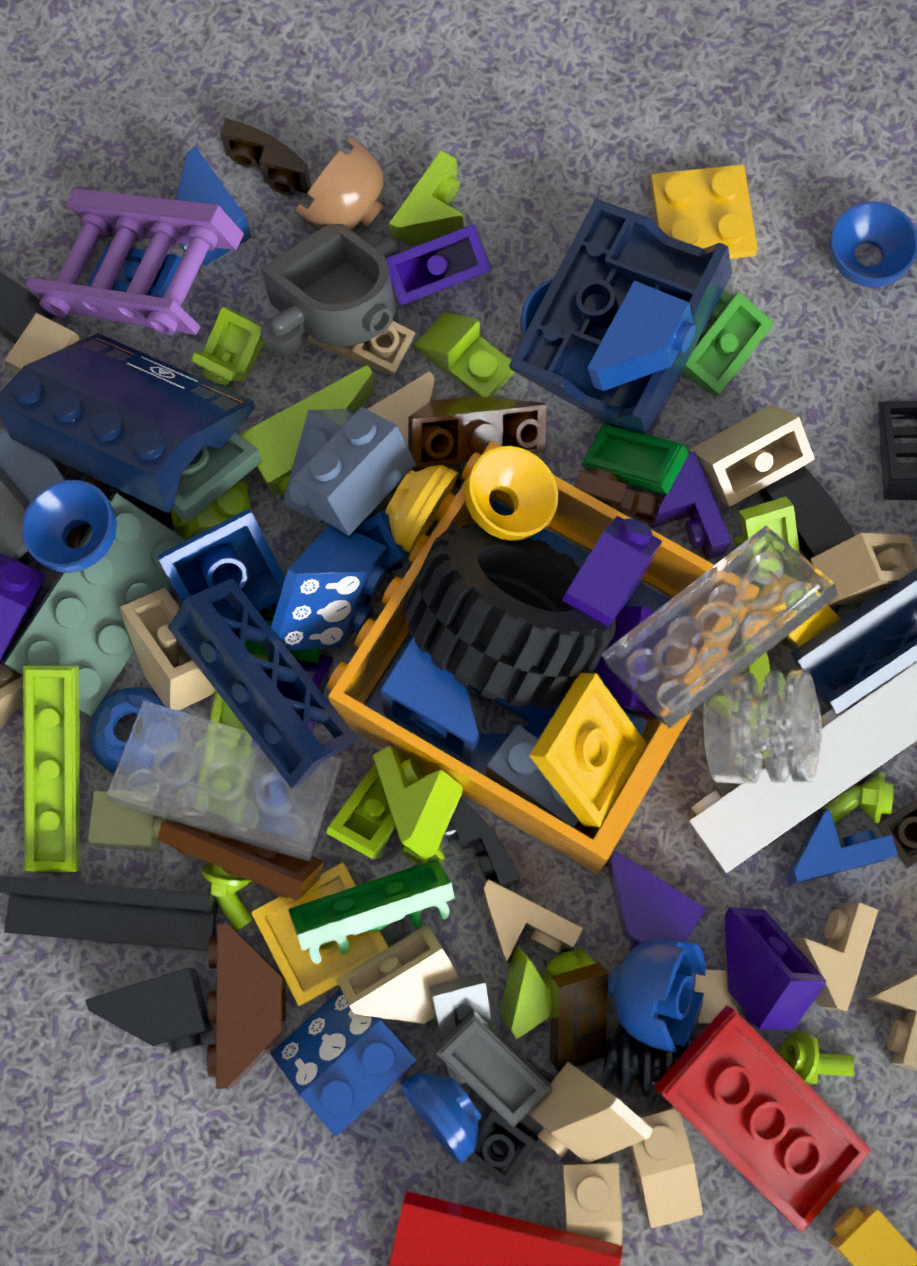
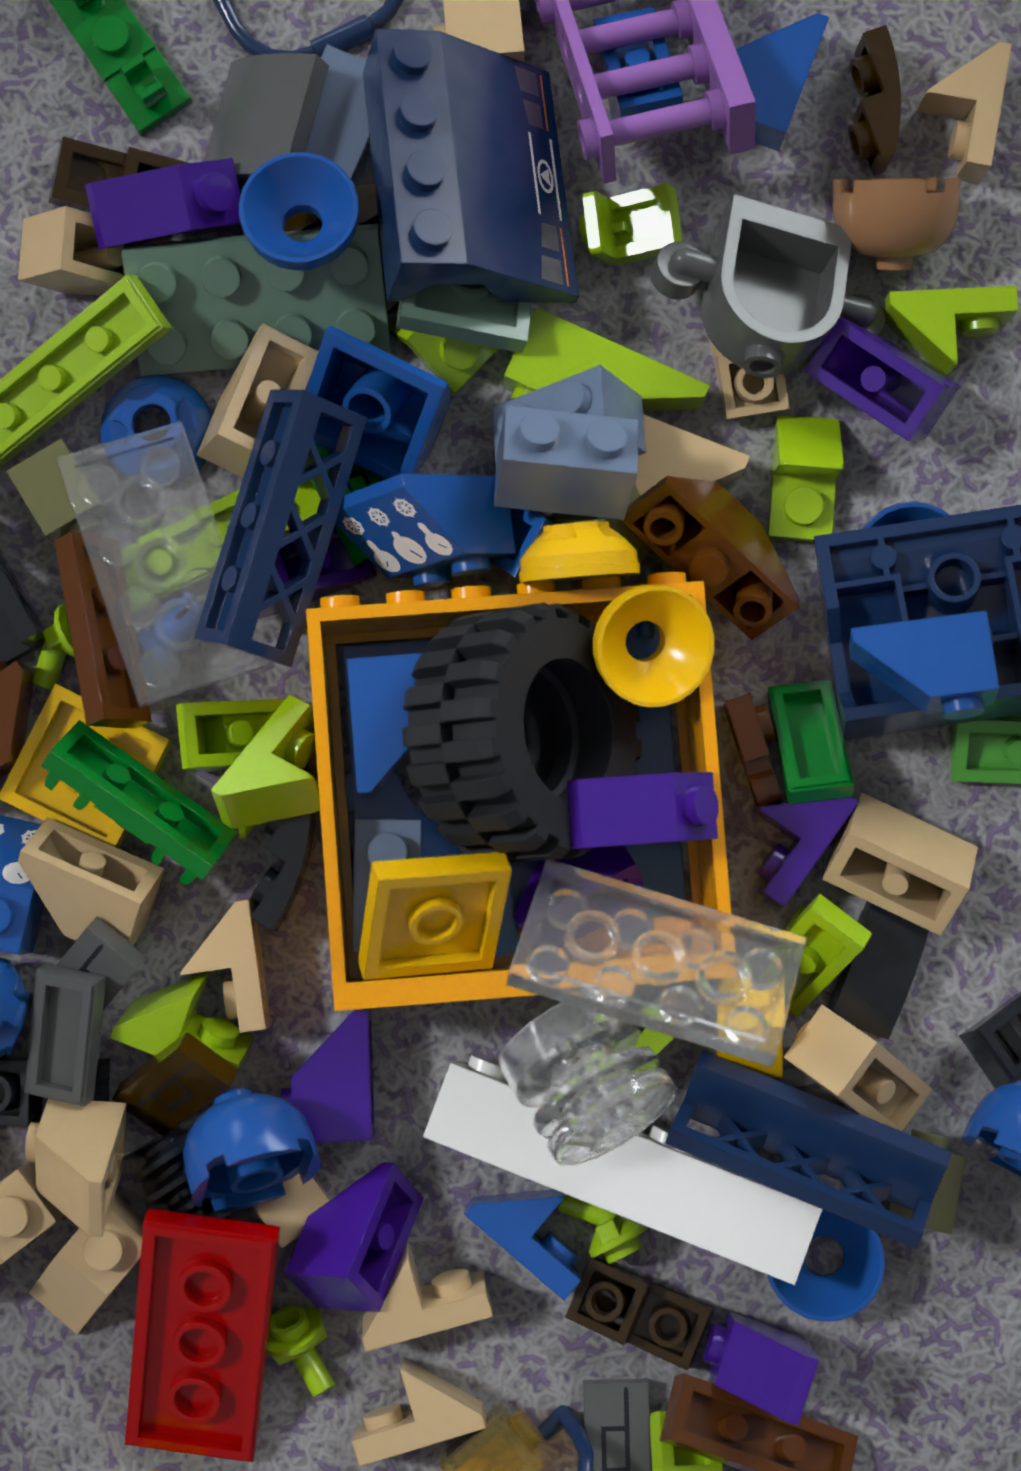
camera: 50 degrees right, 10 degrees up
(312, 103) = (977, 97): none -> tan slope

